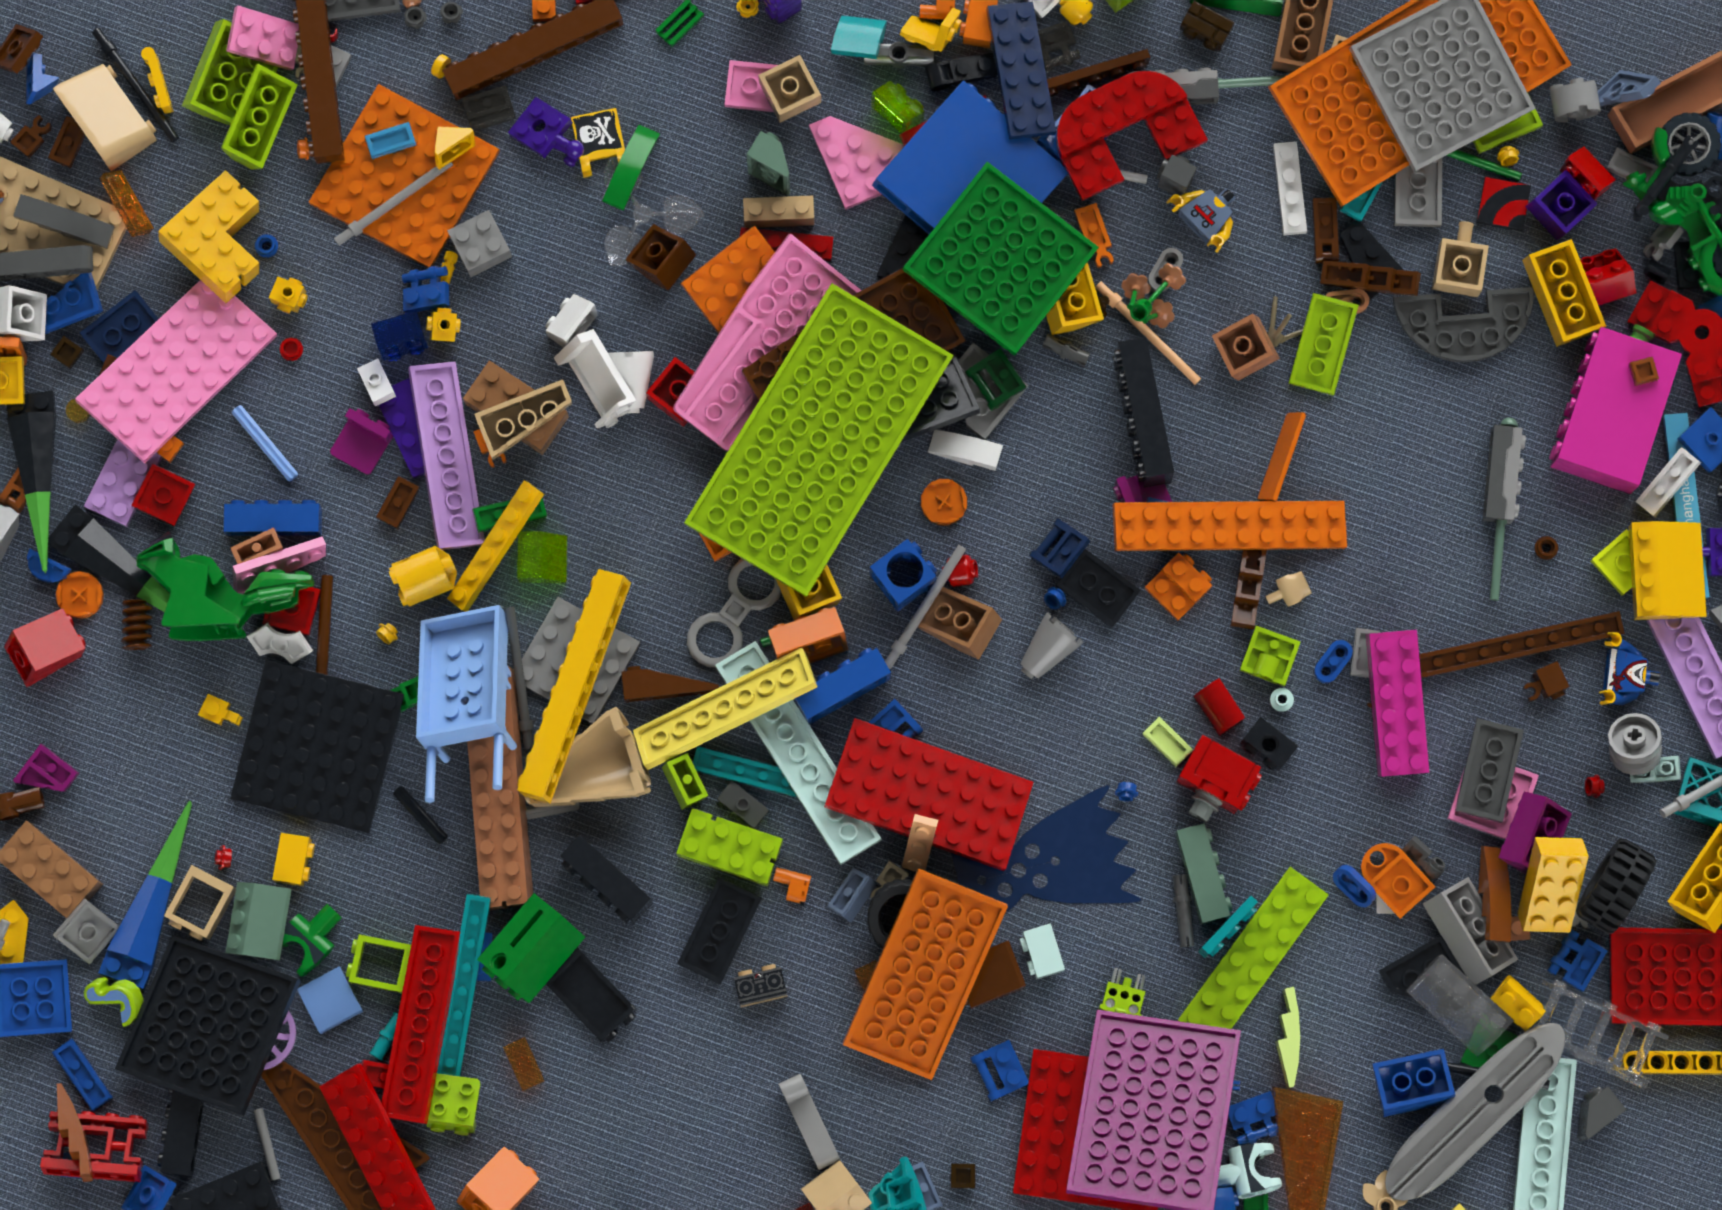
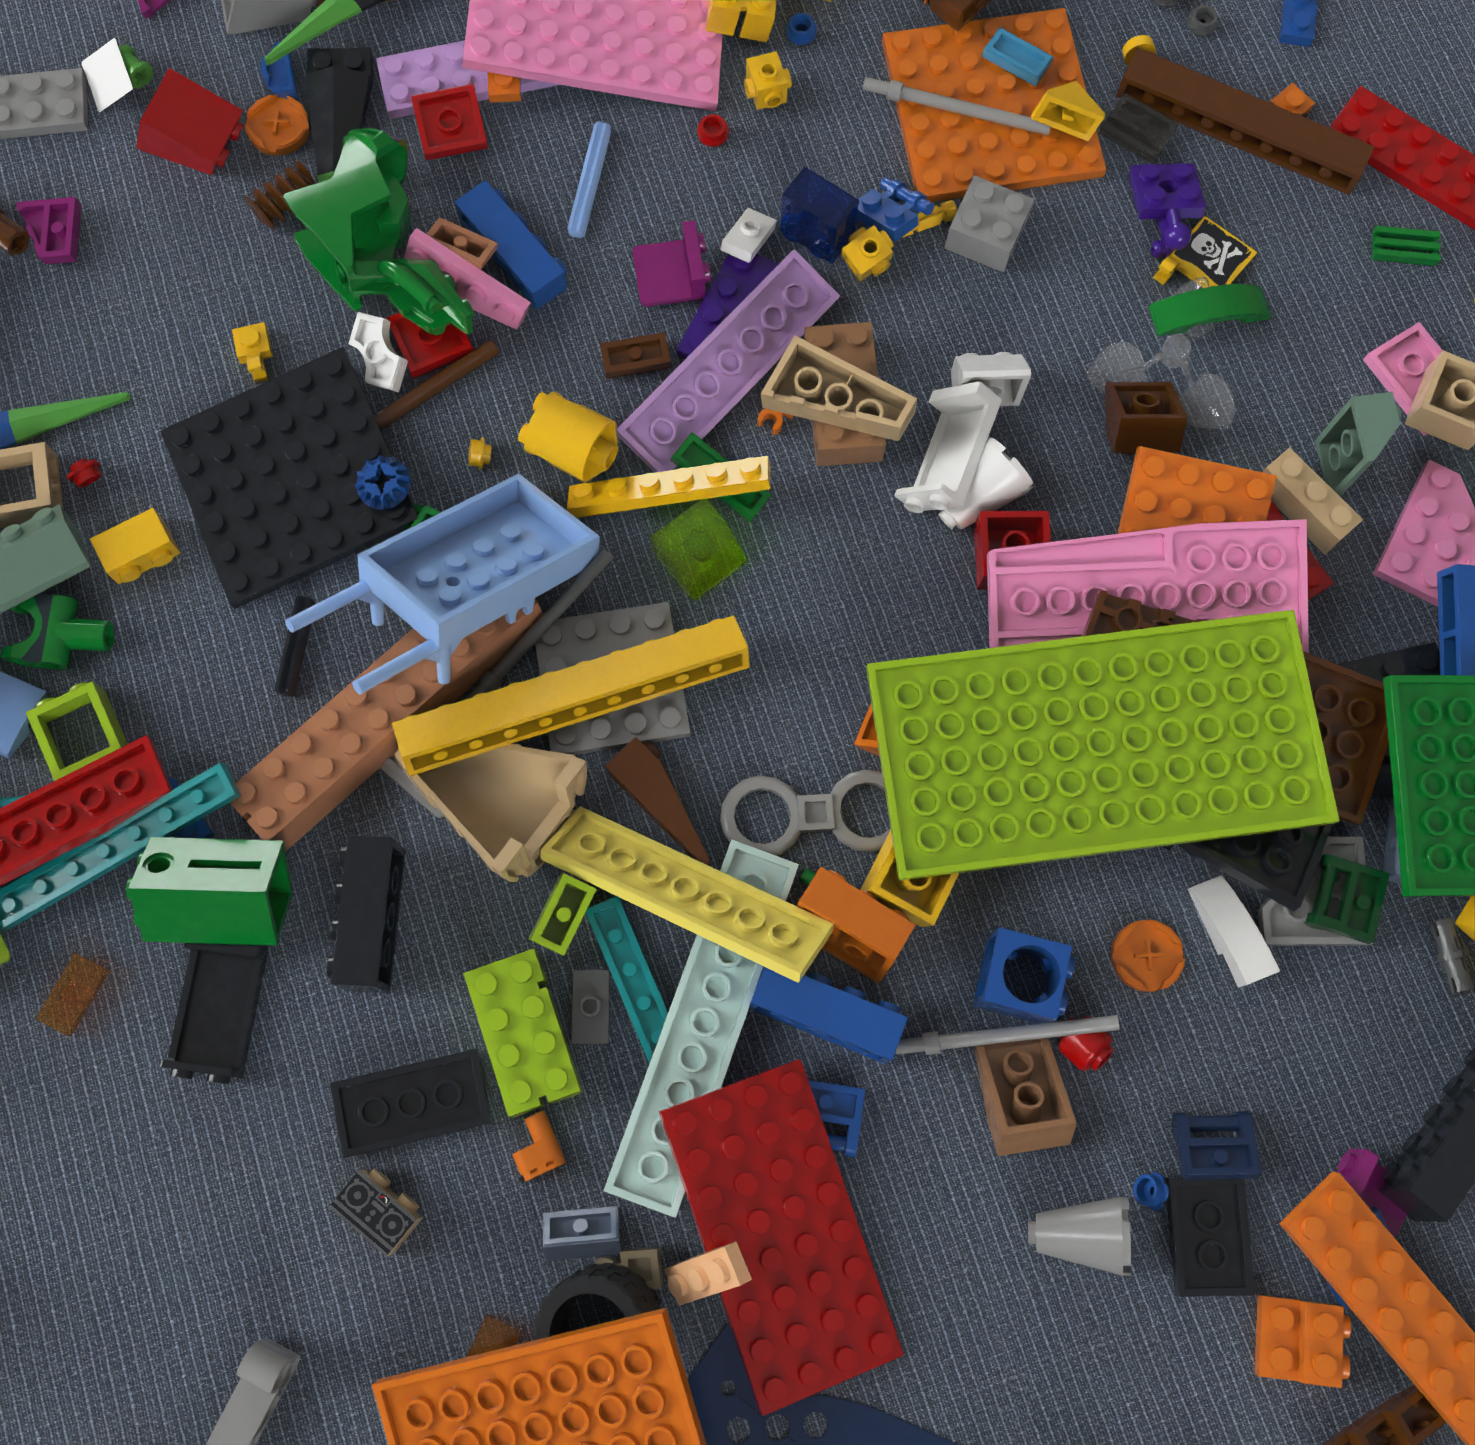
camera: 50 degrees right, 5 degrees down
(381, 694) = (394, 490): none -> blue gear

